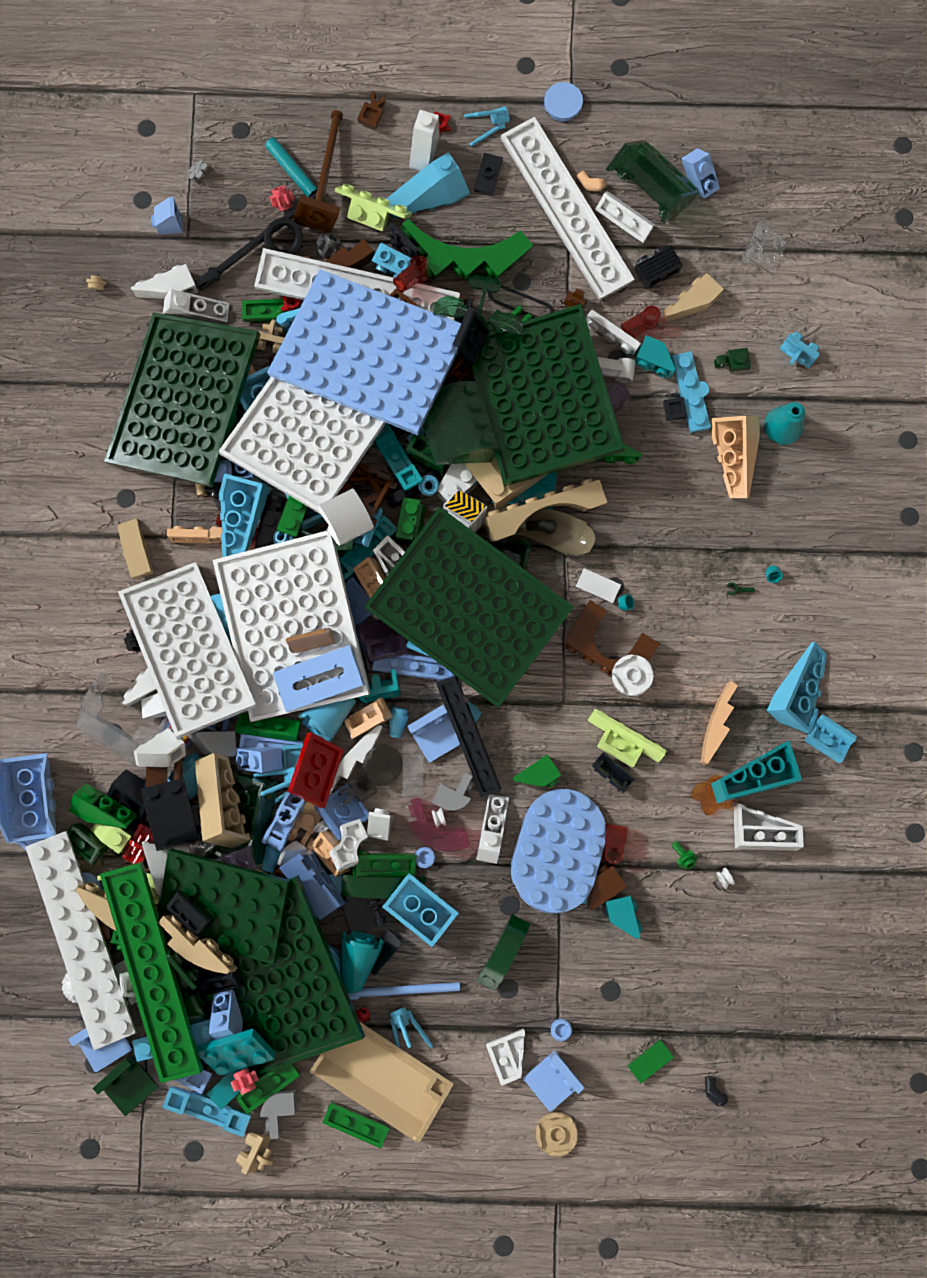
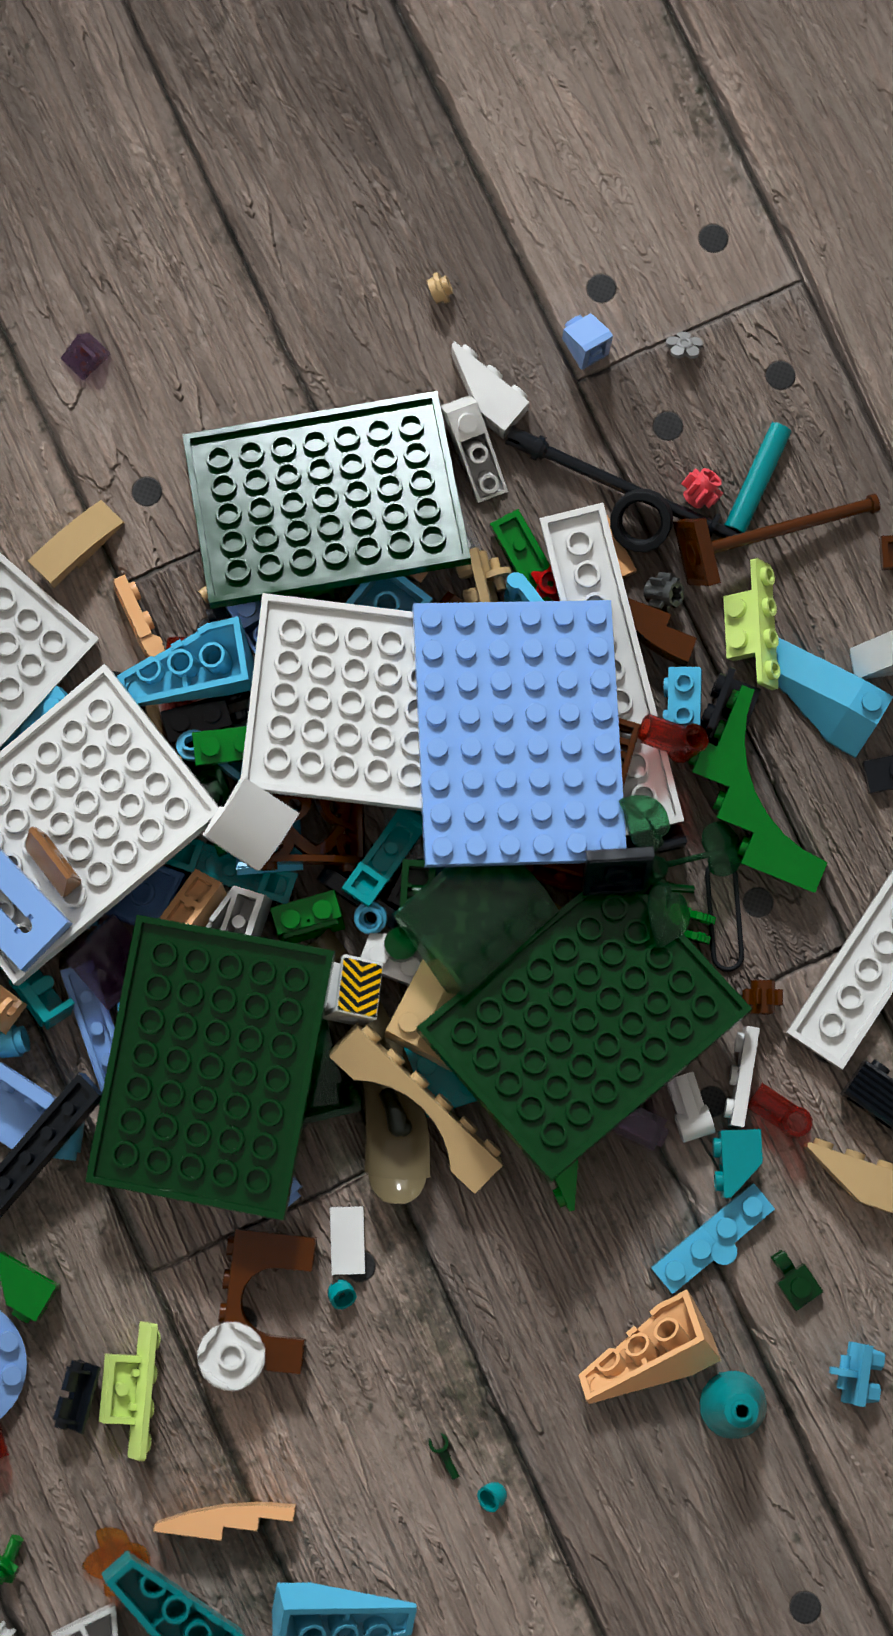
camera: 60 degrees right, 0 degrees up
(30, 495) = (85, 355): none -> clear purple slope
(452, 474) = (398, 945): none -> dark green tile
(674, 409) = (673, 1226): black plate -> none

